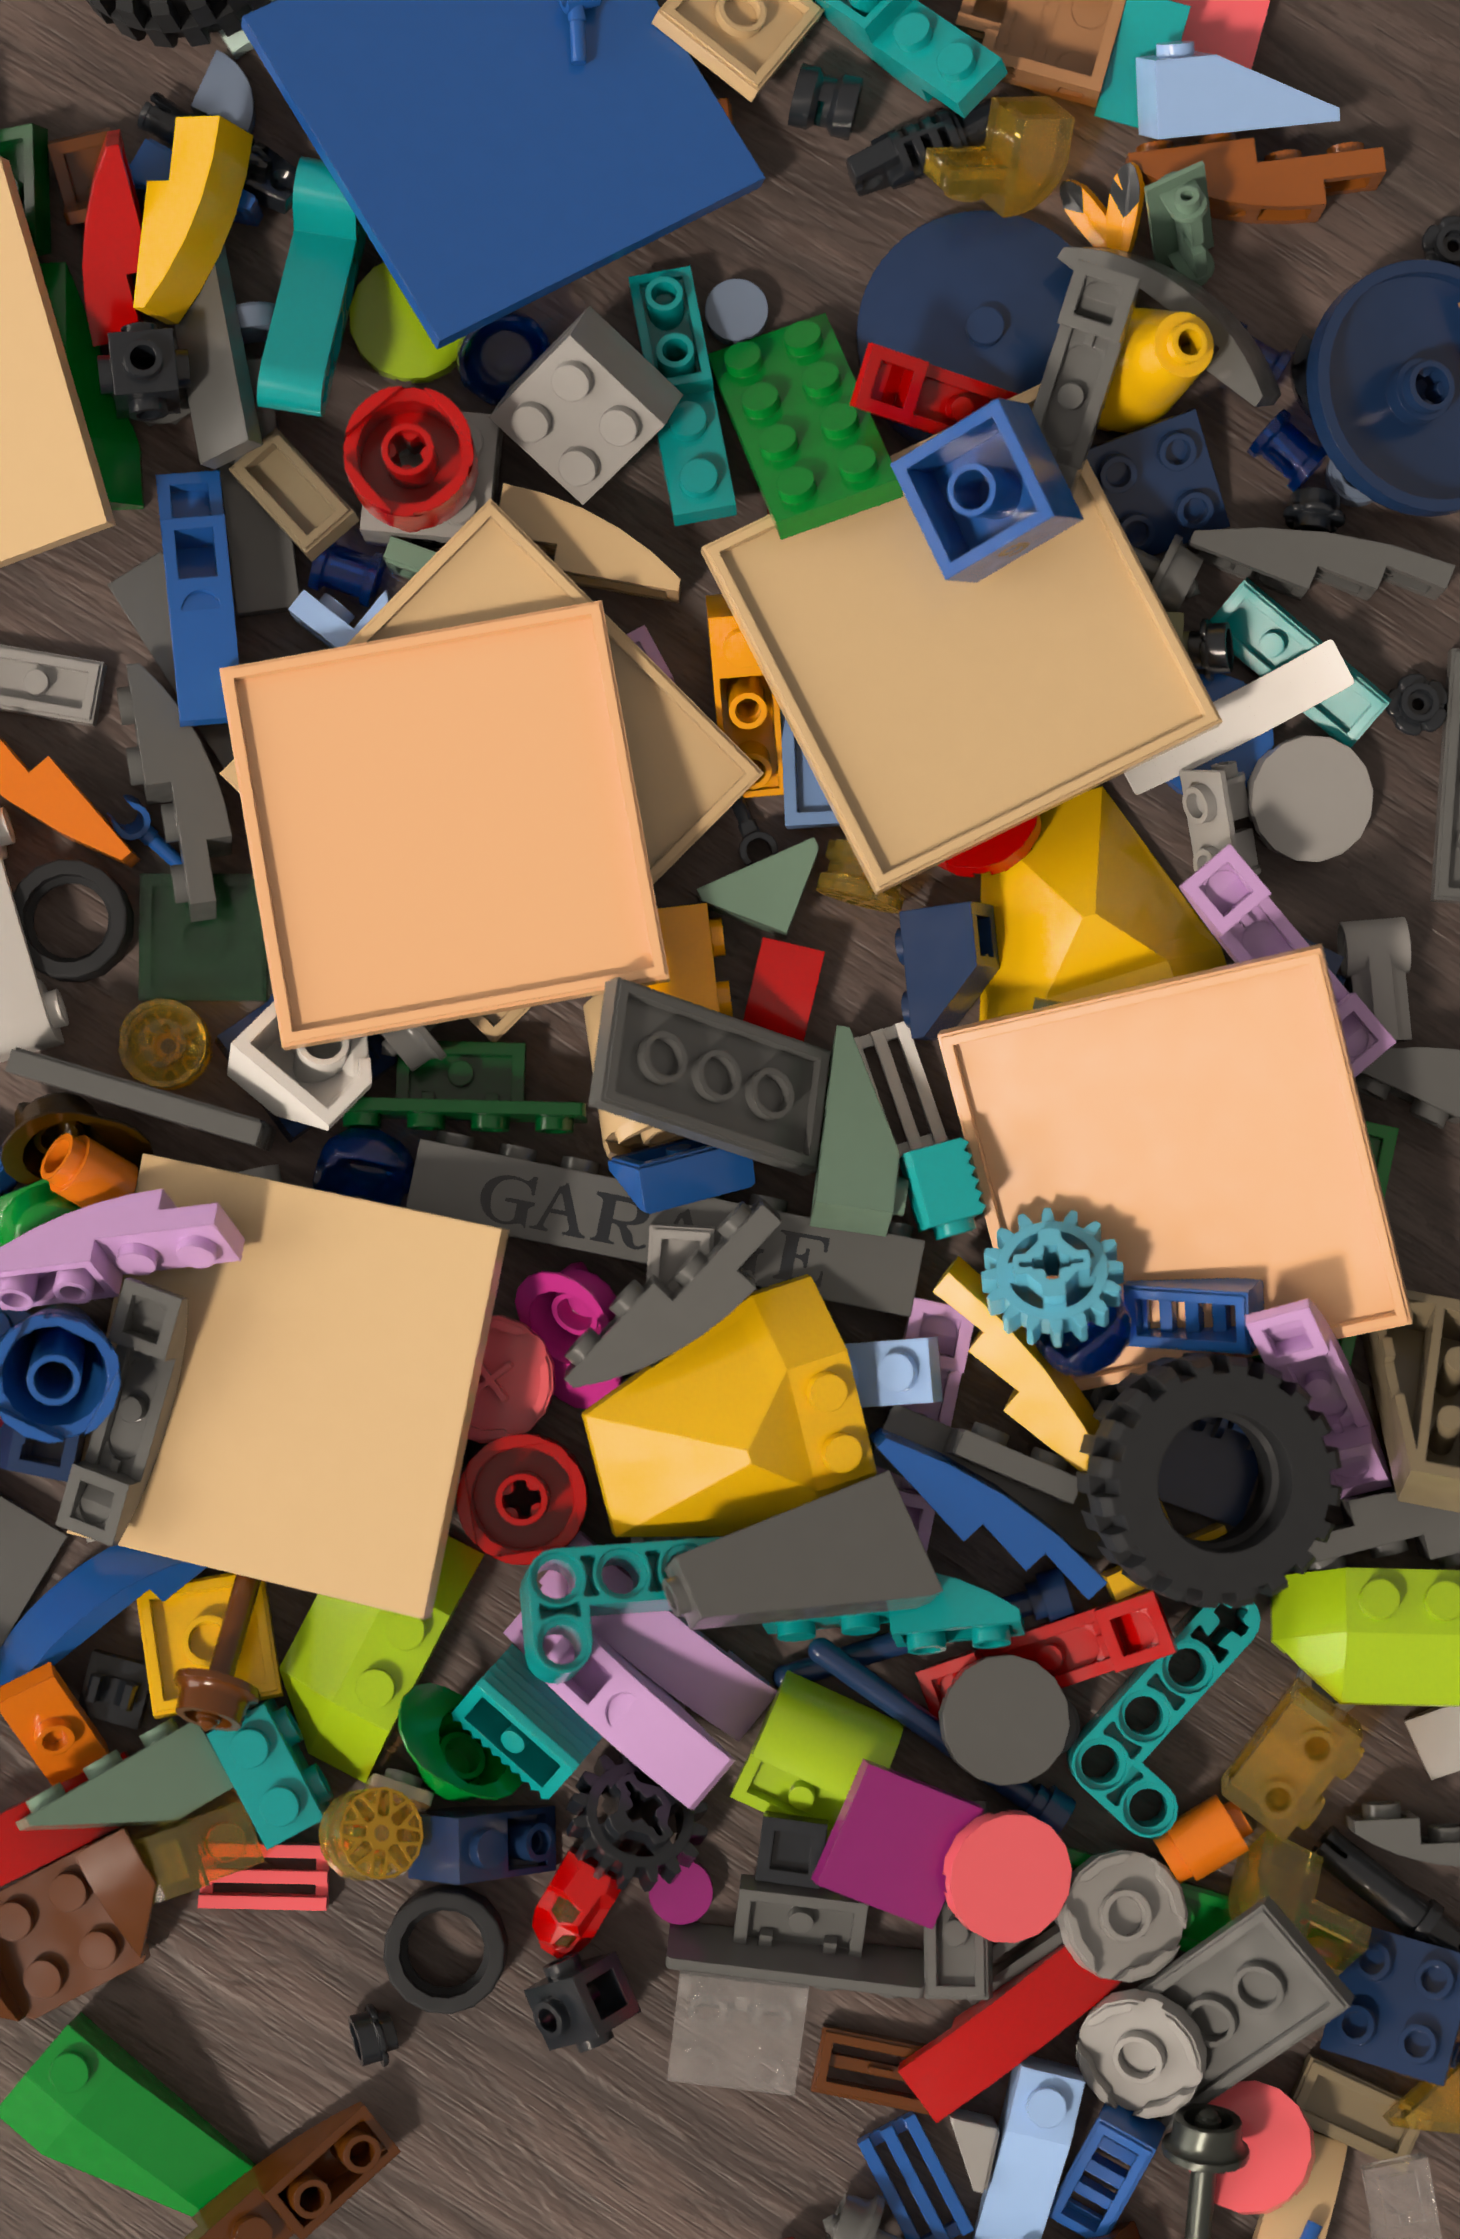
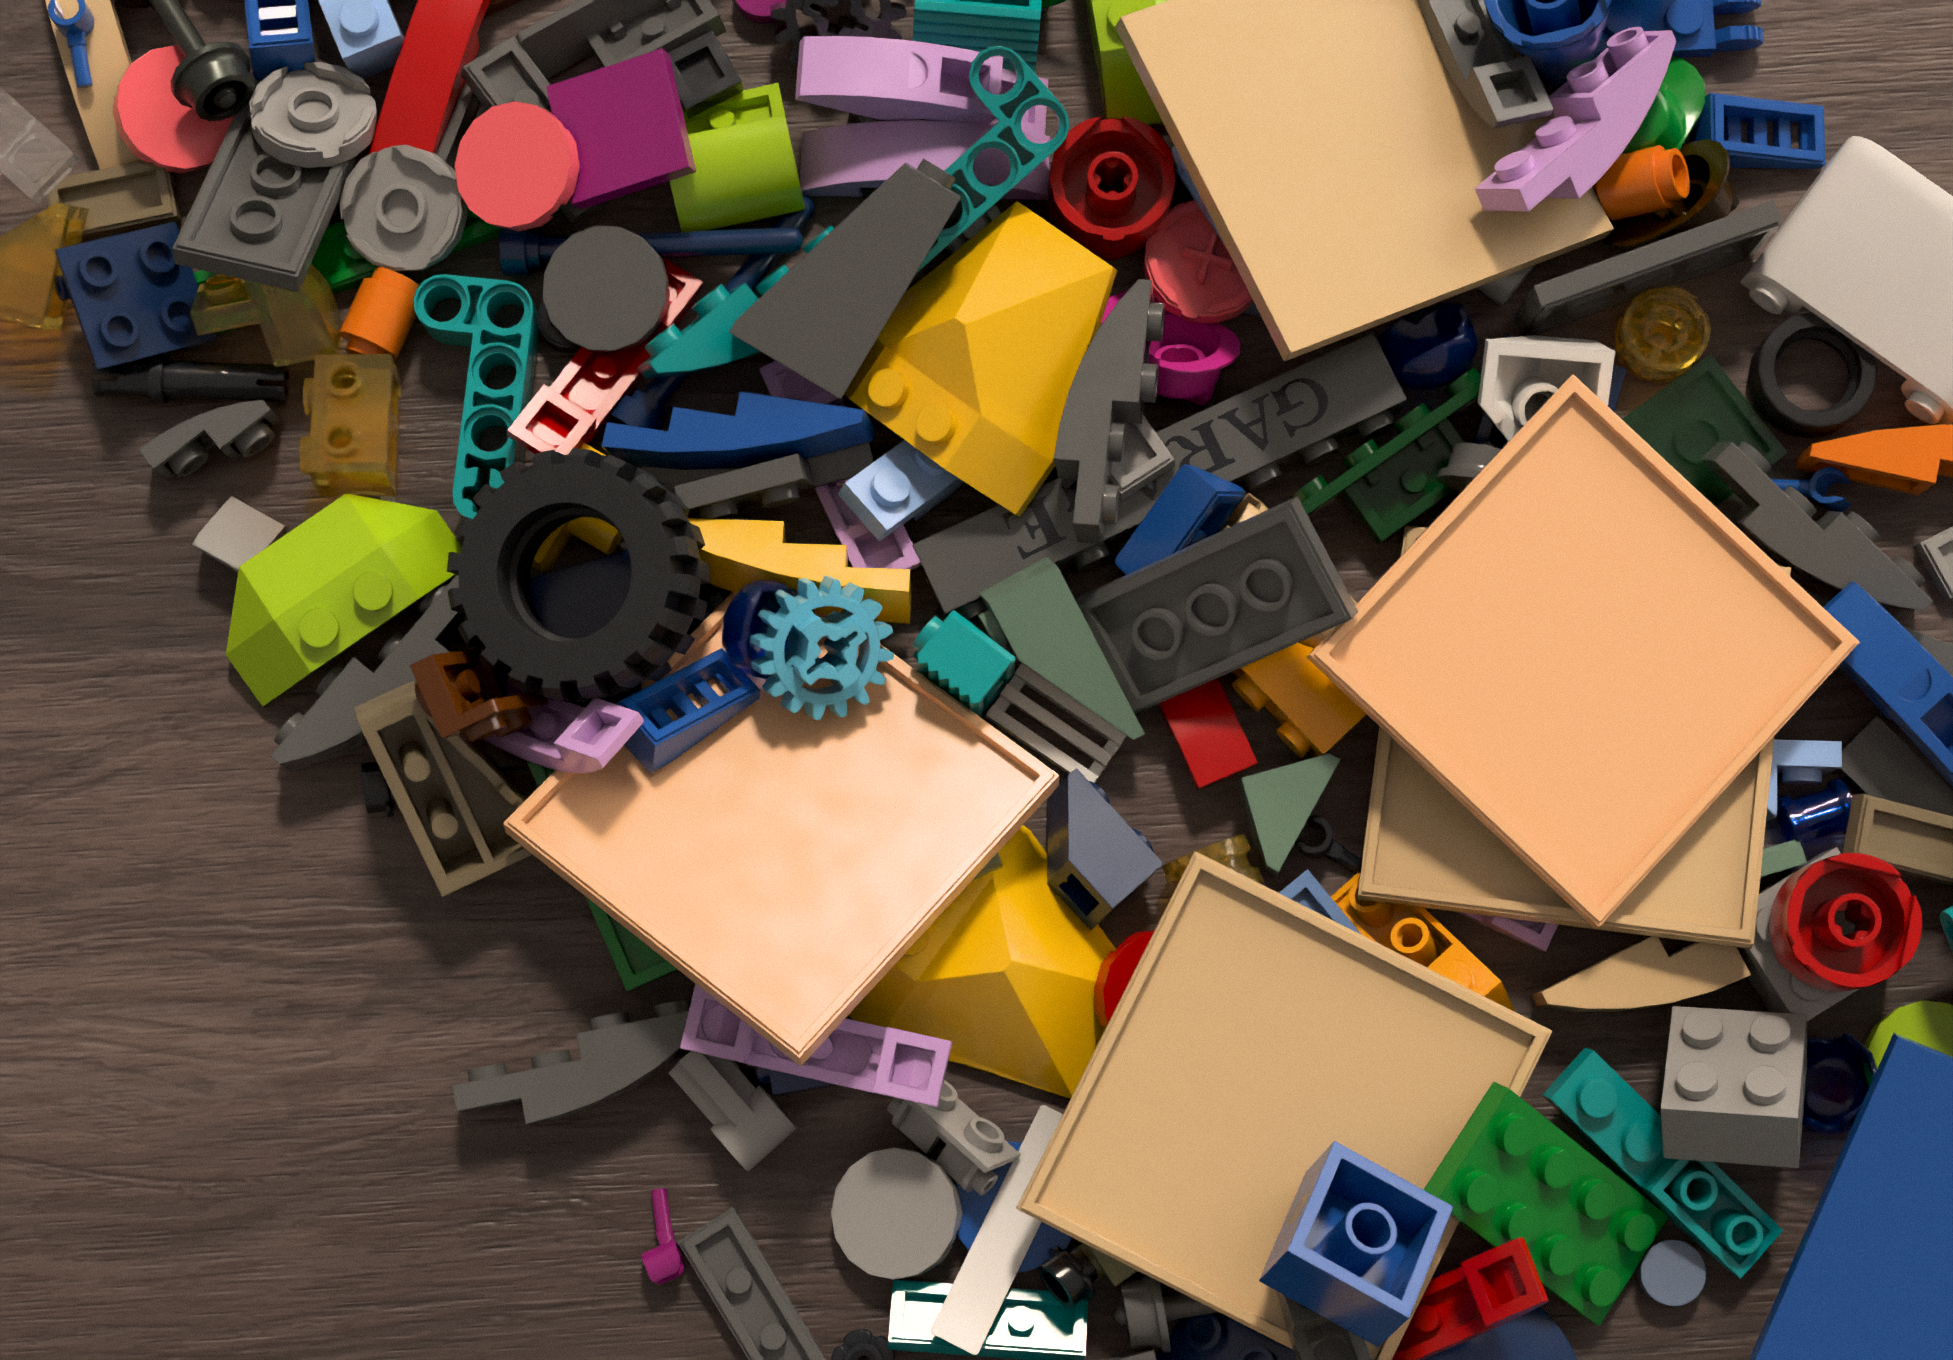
camera: 145 degrees right, 5 degrees down
(1372, 1442) = (469, 697): none -> reddish brown bracket

